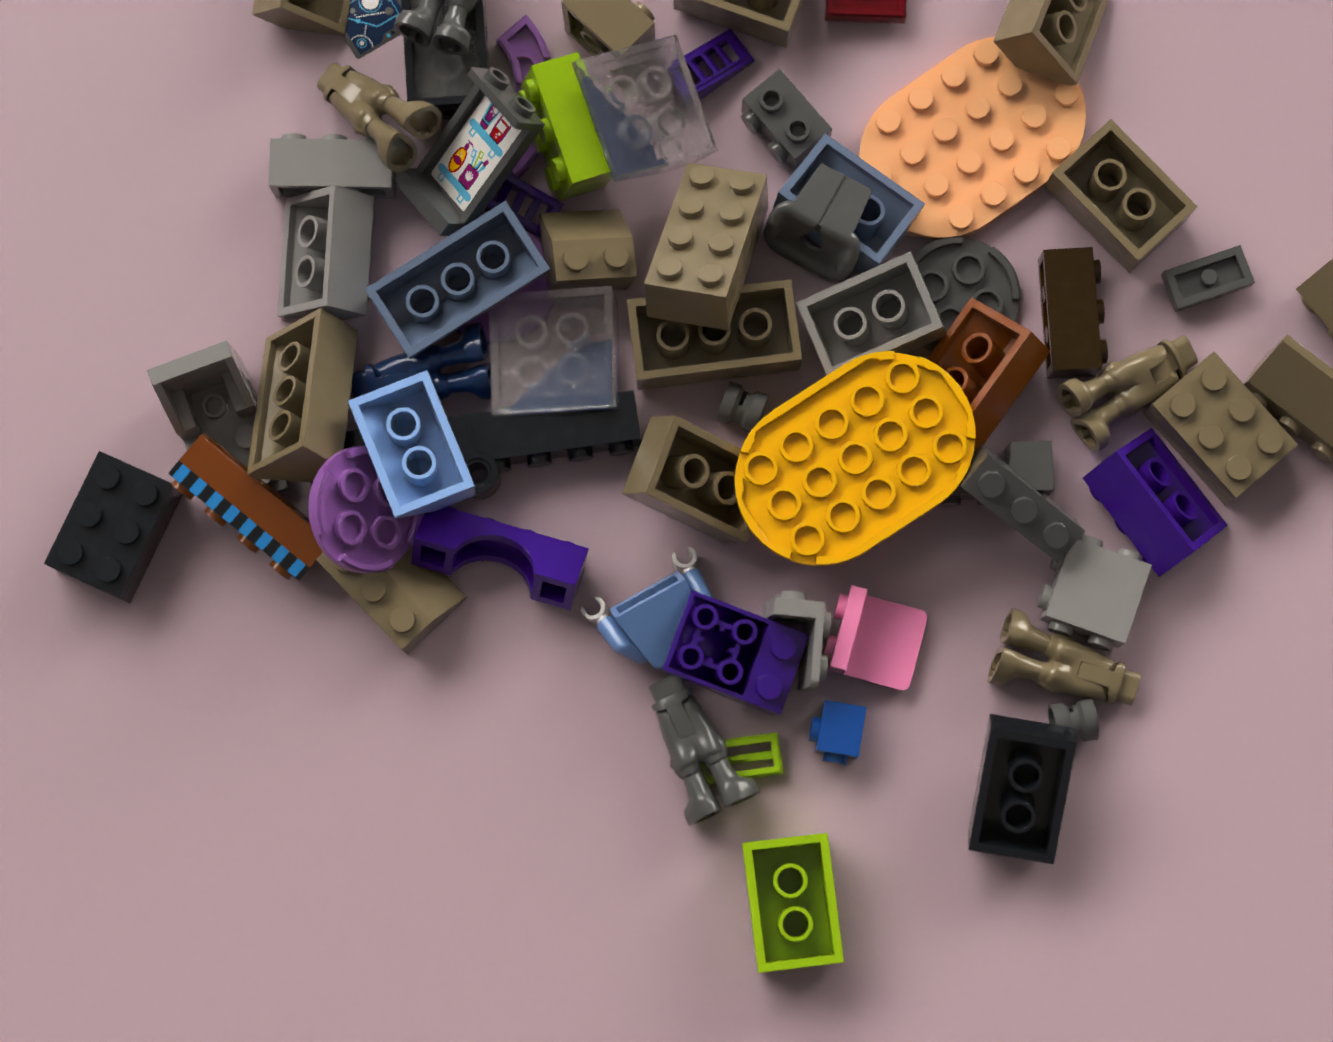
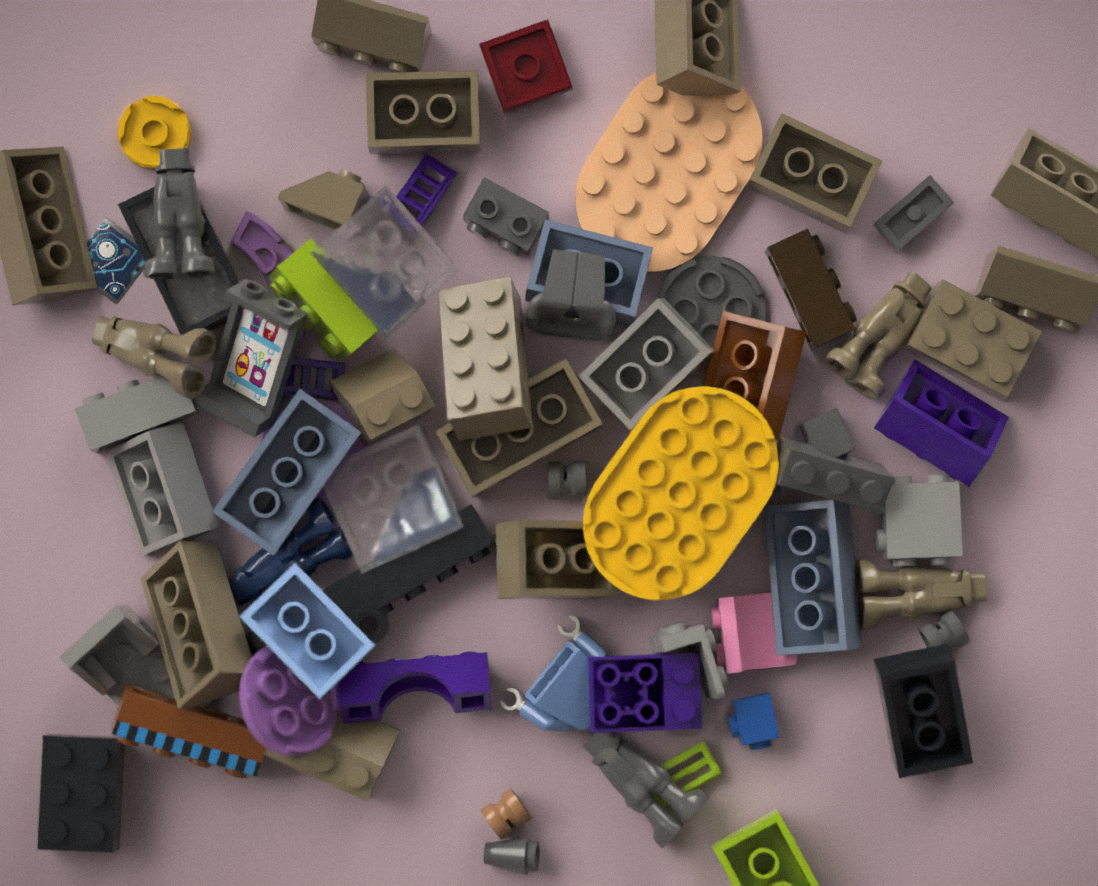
camera: 25 degrees left, 5 degrees up
(532, 771) = (513, 855): none -> dark grey cone
(540, 725) = (506, 814): none -> medium nougat wheel
(959, 606) = (812, 577): none -> sand blue slope

